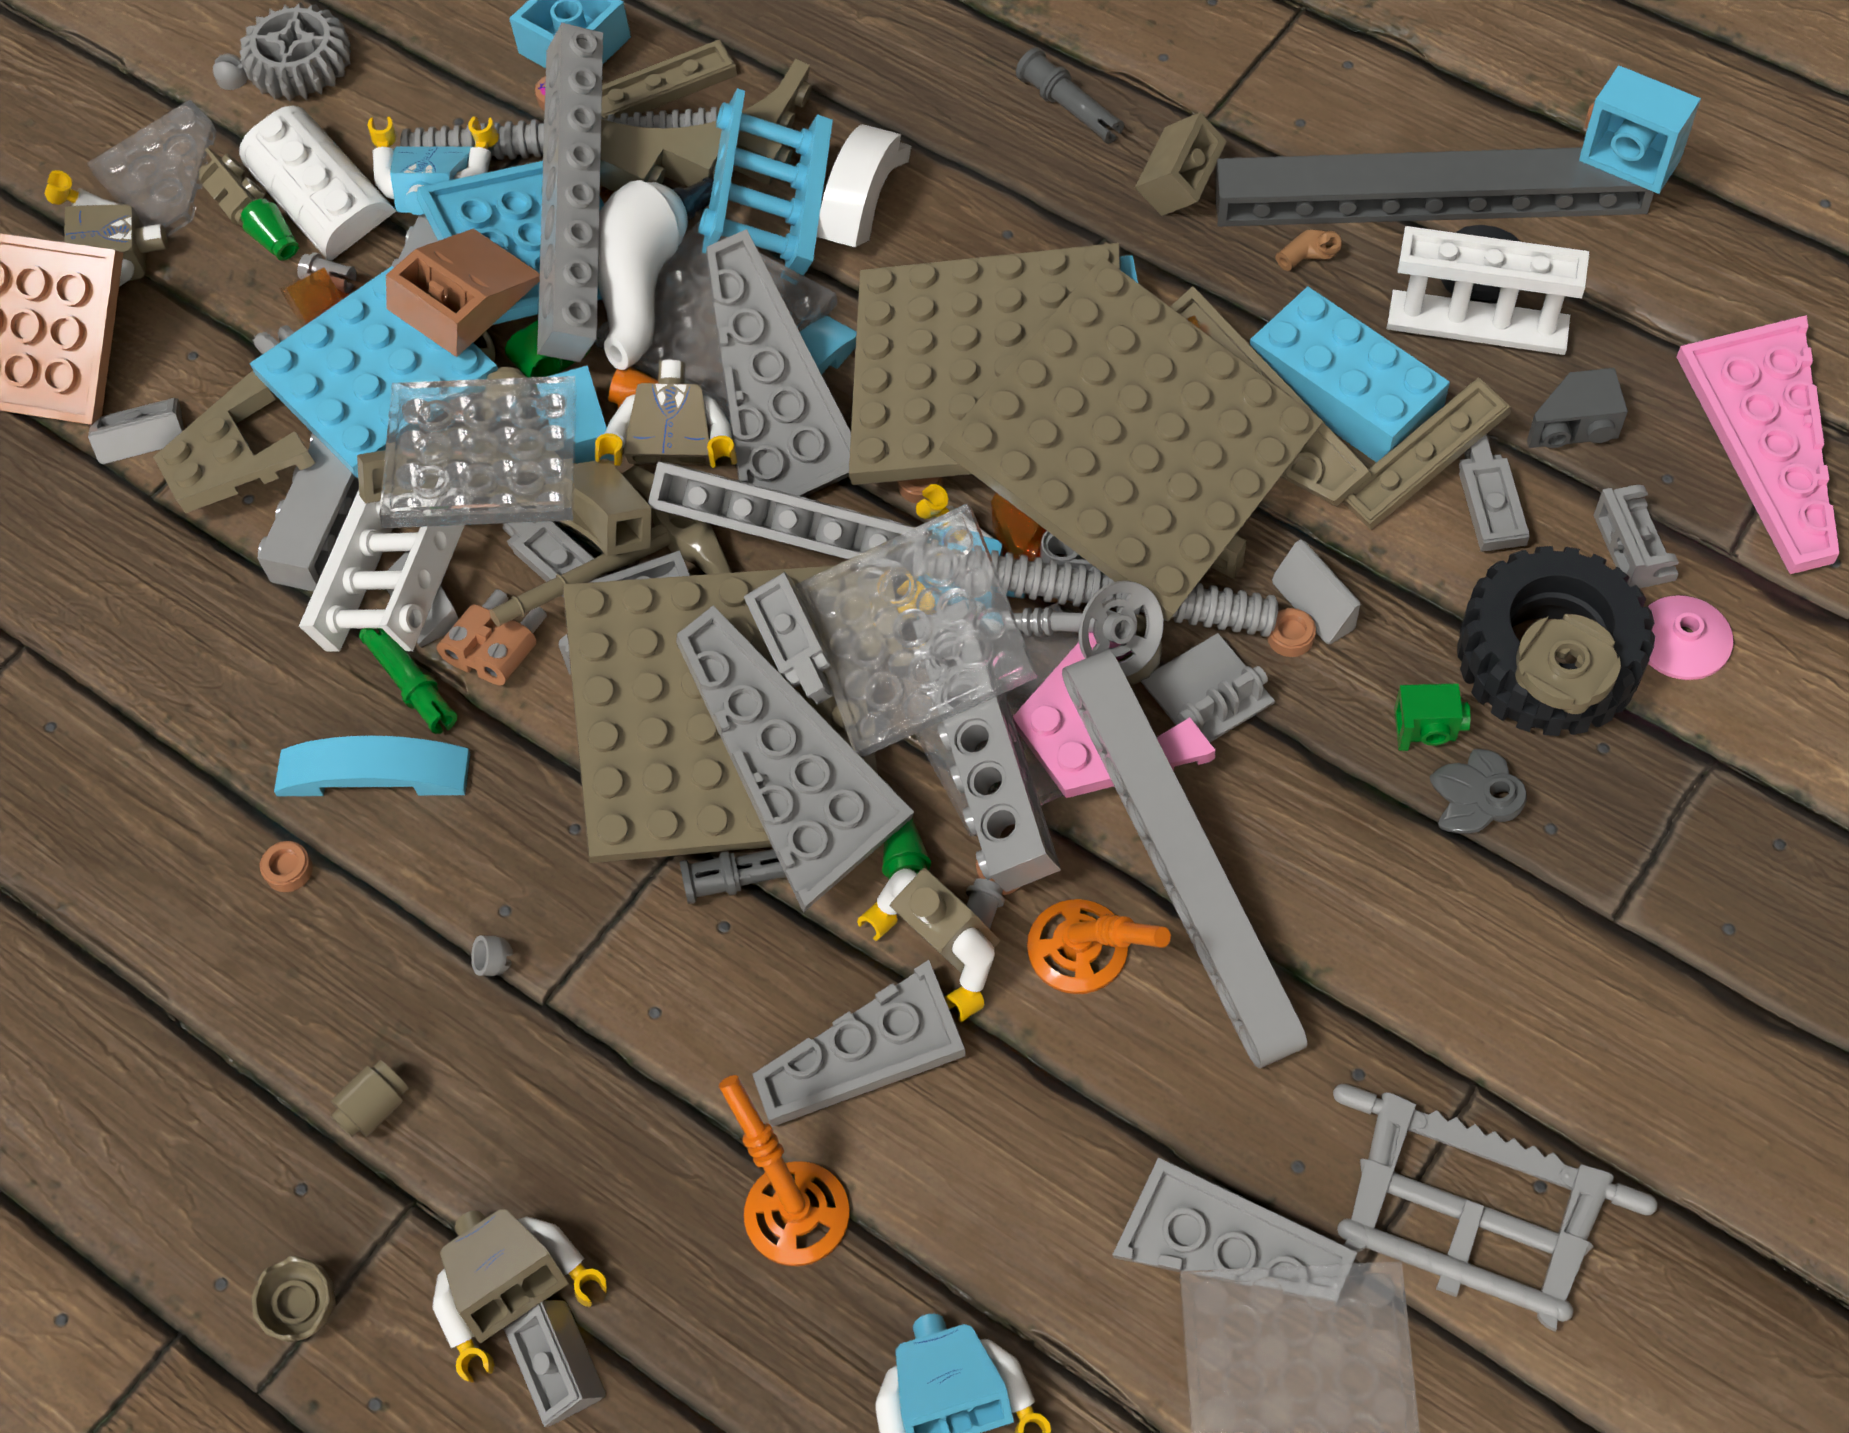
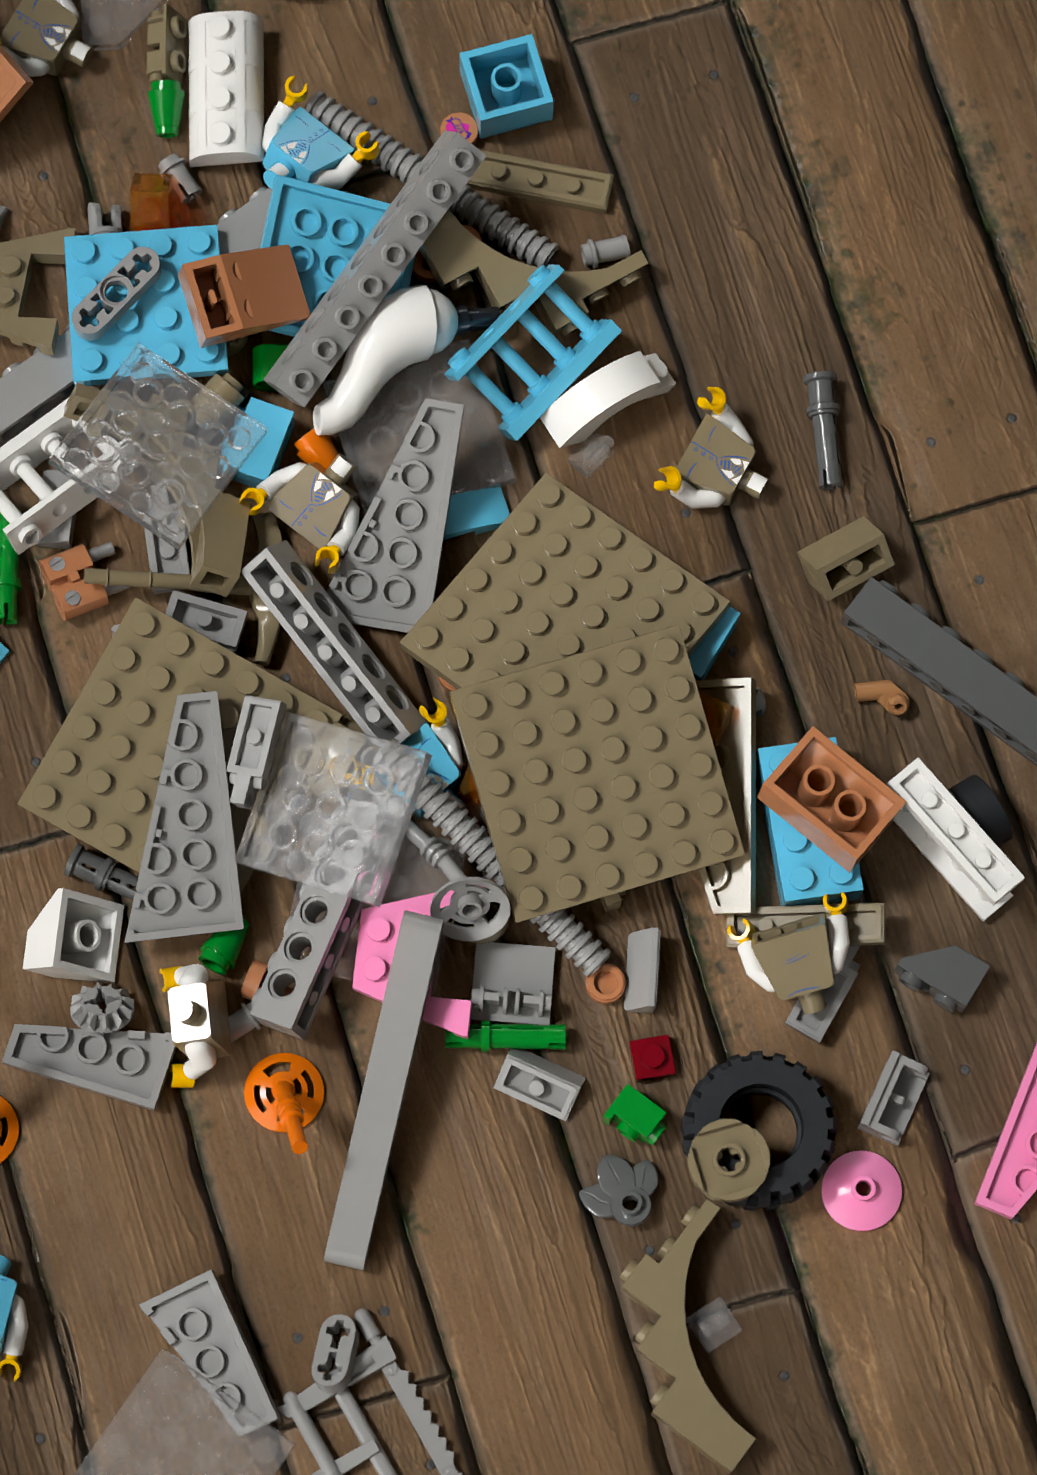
camera: 30 degrees right, 15 degrees up
(346, 381) = (90, 307): none -> light grey beam
(747, 951) = (75, 938): none -> white slope
(762, 87) = (604, 251): none -> light grey pin
(819, 1003) = (89, 1017): none -> light grey gear
(887, 238) = (592, 454): none -> clear slope
(962, 859) = (254, 979): none -> nougat tile
(999, 167) = (715, 460): none -> torso
(1246, 736) = (513, 1036): none -> green pin
(1312, 759) = (539, 1083): none -> light grey slope
(1362, 314) = (831, 799): none -> nougat slope
(1363, 1139) = (343, 1356): none -> light grey beam
(1393, 662) = (652, 1058): none -> dark red plate
(1448, 468) = (798, 955): none -> dark tan torso
(1675, 845) = (714, 1325): none -> clear tile
(1722, 927) = (688, 1404): none -> dark tan arch

